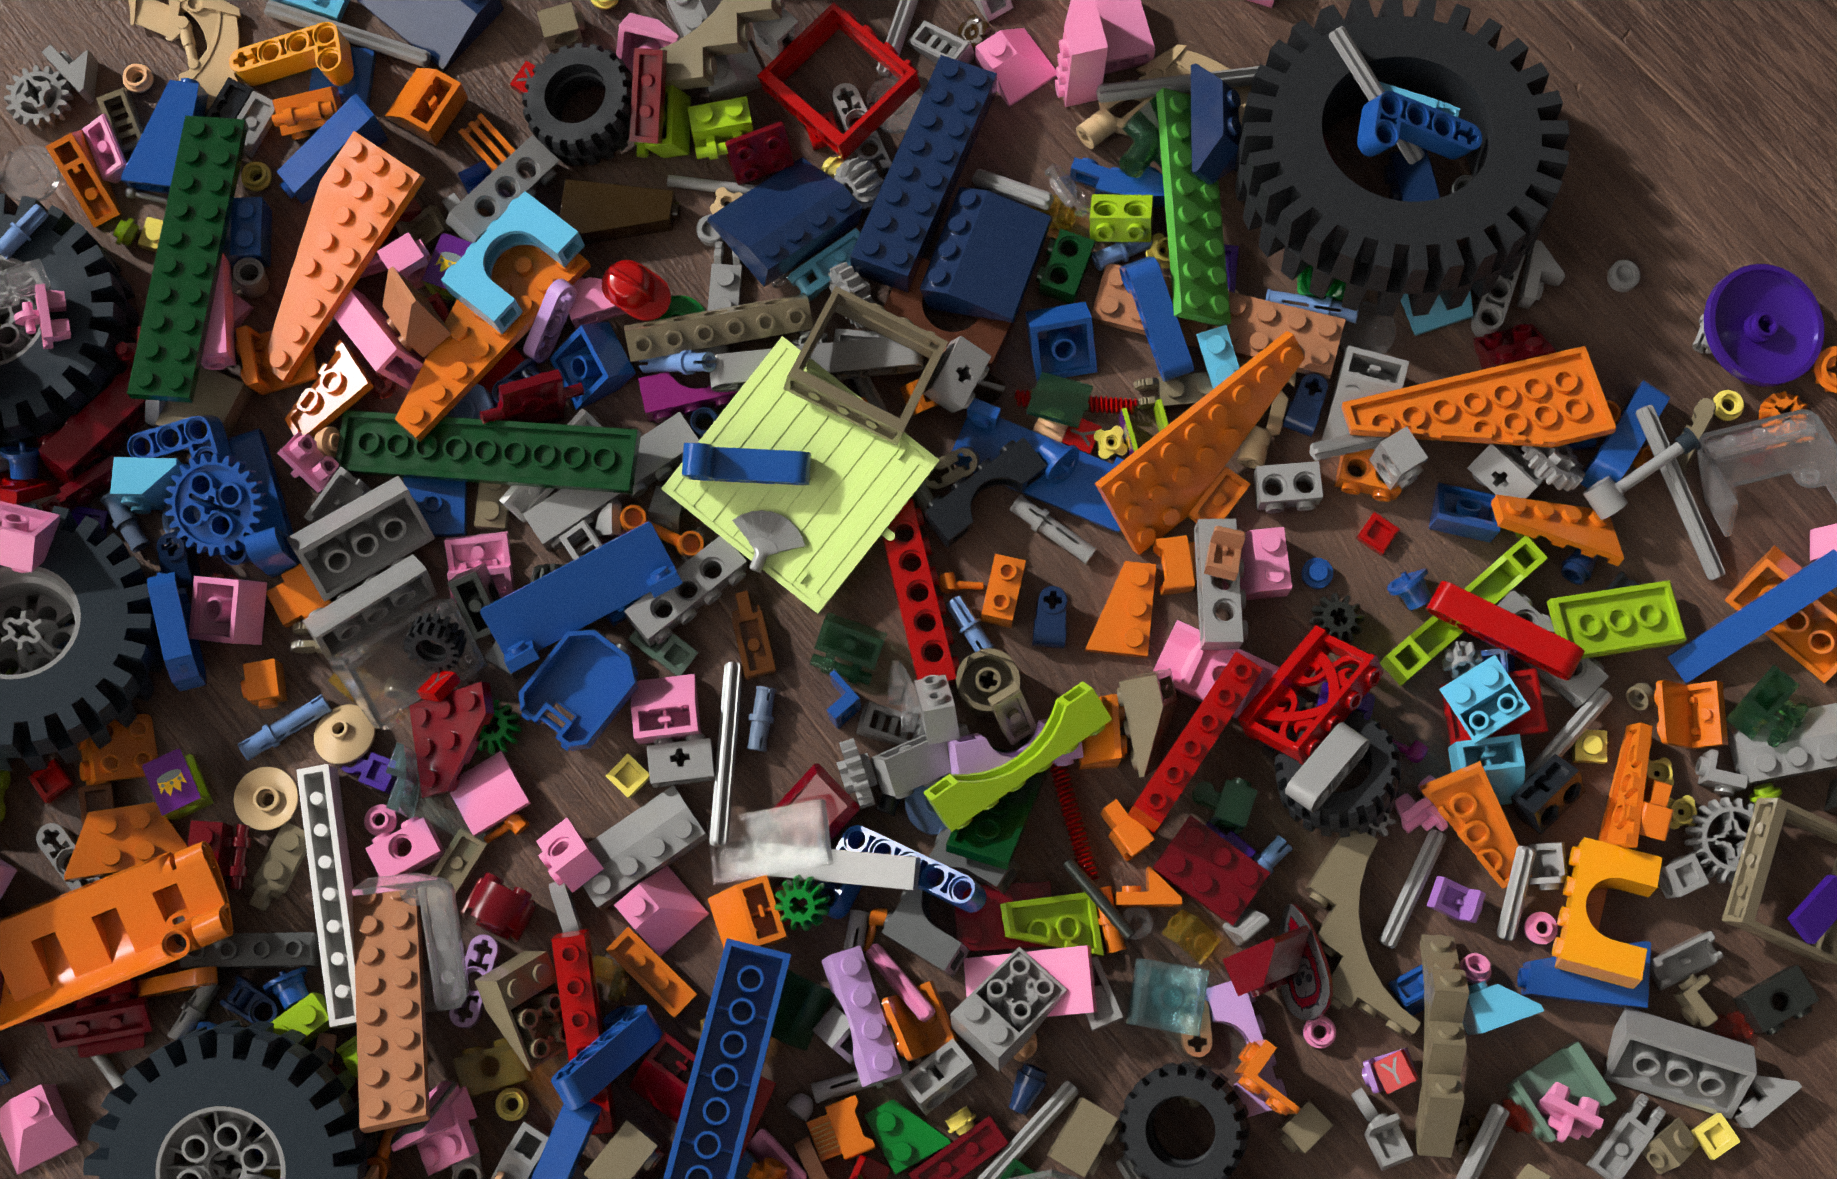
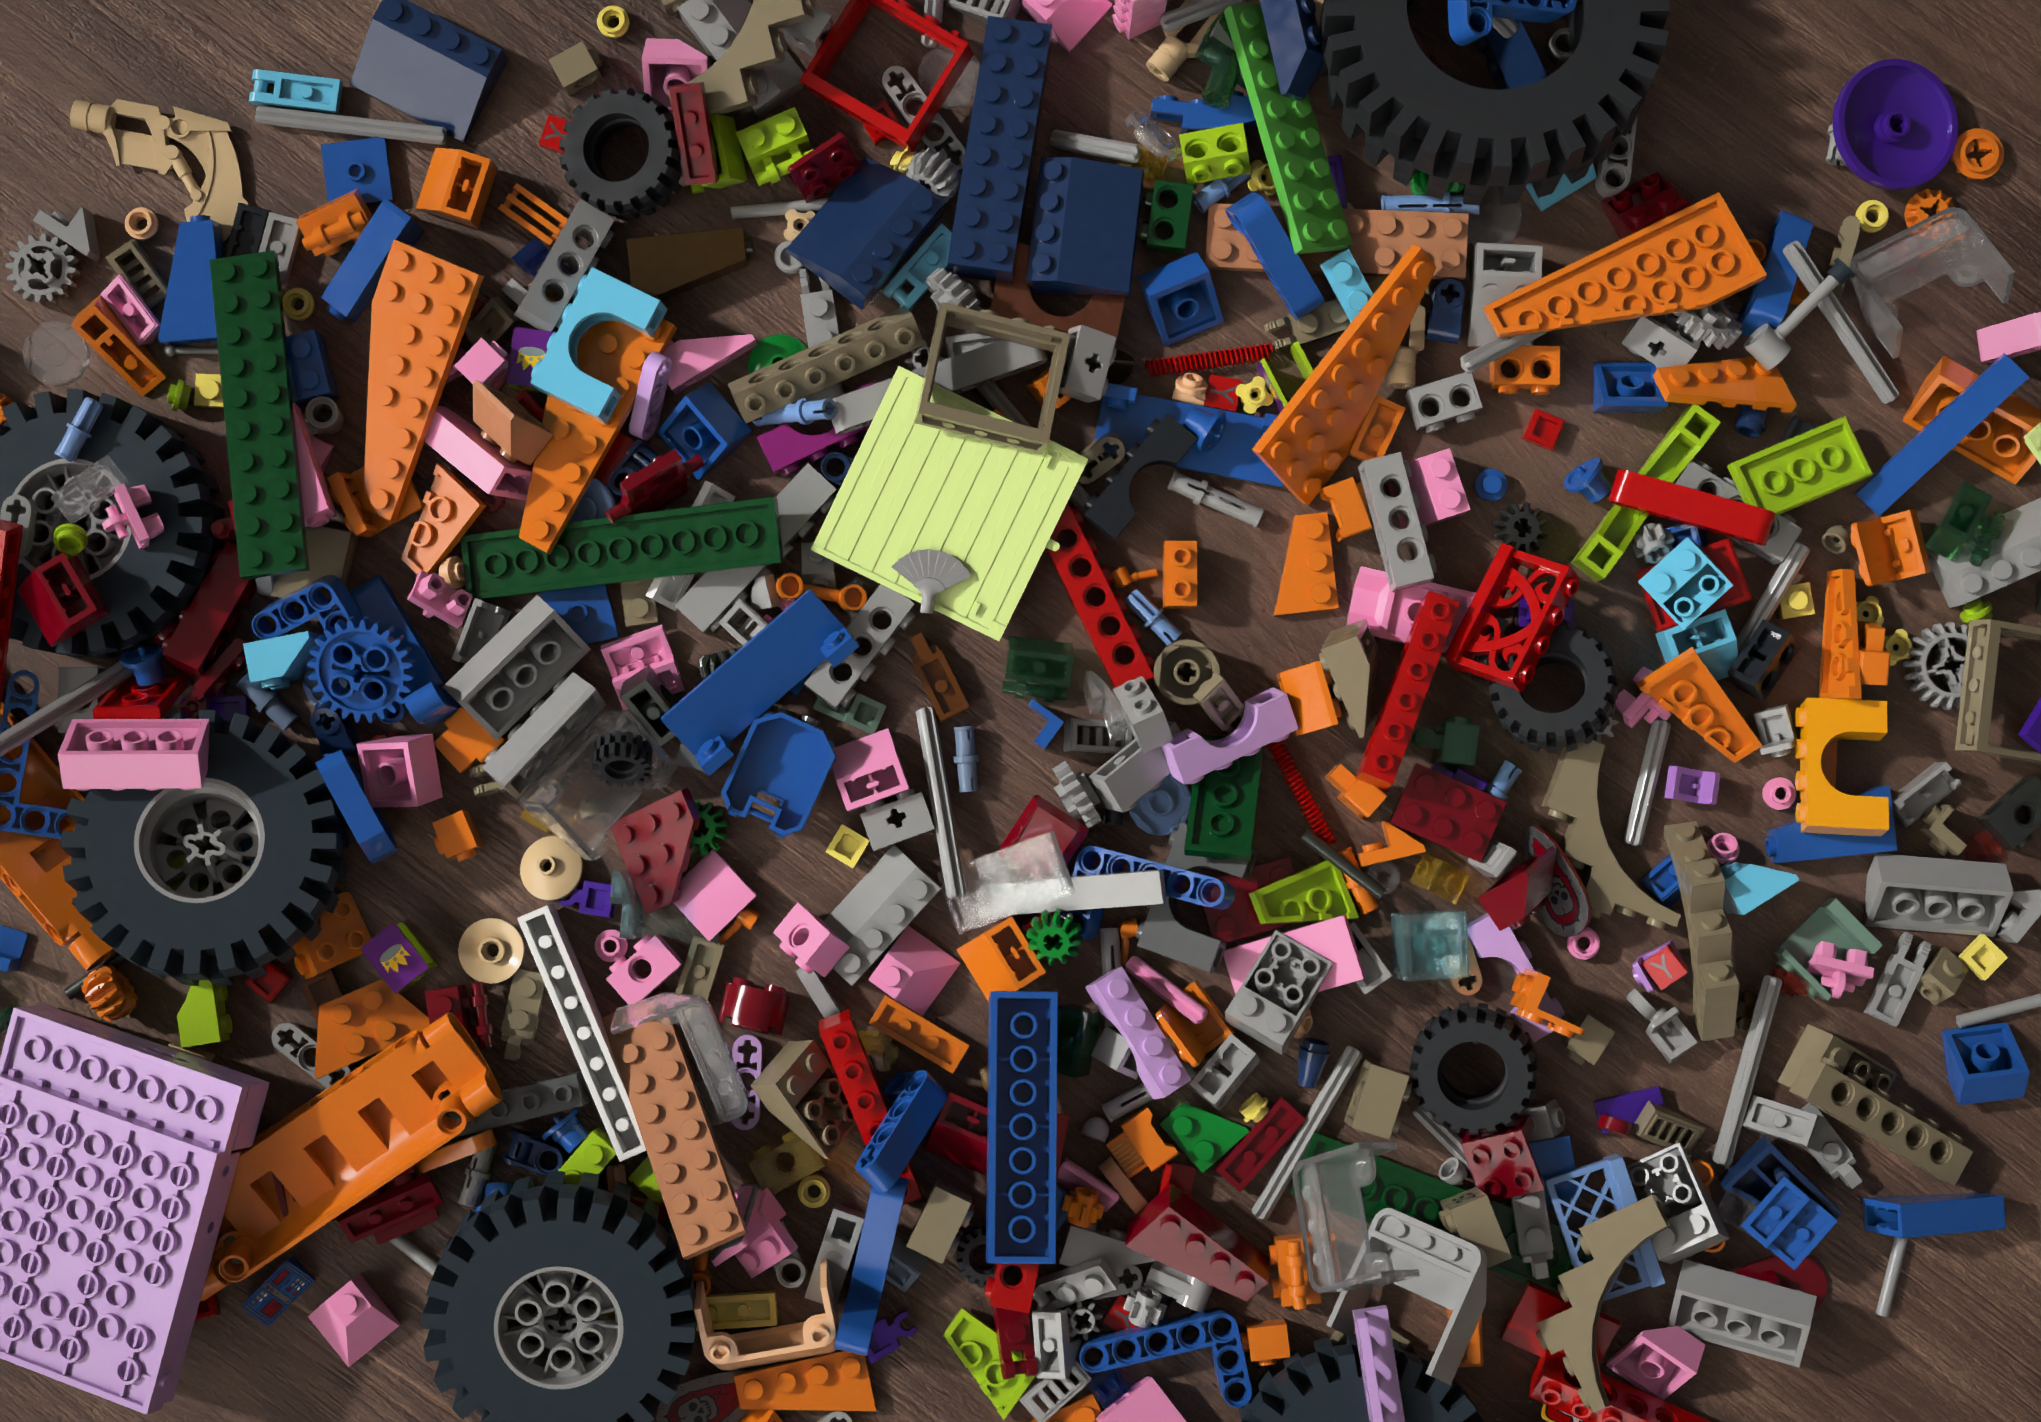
camera: 15 degrees left, 10 degrees up
(284, 727) = (485, 878): medium blue pin -> none
(296, 52) = (263, 179): light orange beam -> none
(438, 686) = (636, 801): red tile -> none
(636, 290) = (731, 343): red piece -> none
(745, 465) = (894, 509): blue beam -> none
(1050, 624) = (1234, 599): dark blue piece -> none
(1059, 400) = (1193, 363): clear green piece -> none
(1073, 719) = (1281, 700): lime arch -> none
(1224, 553) = (1397, 493): nougat bracket -> none
(1327, 767) = (1545, 690): light grey beam -> none
(1399, 459) = (1554, 355): light grey brick -> none
(1415, 752) = (1623, 646): magenta hand -> none
(1516, 892) = (1749, 765): light grey axle -> none
(1538, 270) = (1654, 112): light grey slope -> none
(1623, 275) = (1742, 99): light grey tile -> none
(1681, 876) = (1908, 713): light grey brick -> none
(1723, 781) = (1932, 608): light grey bracket -> none

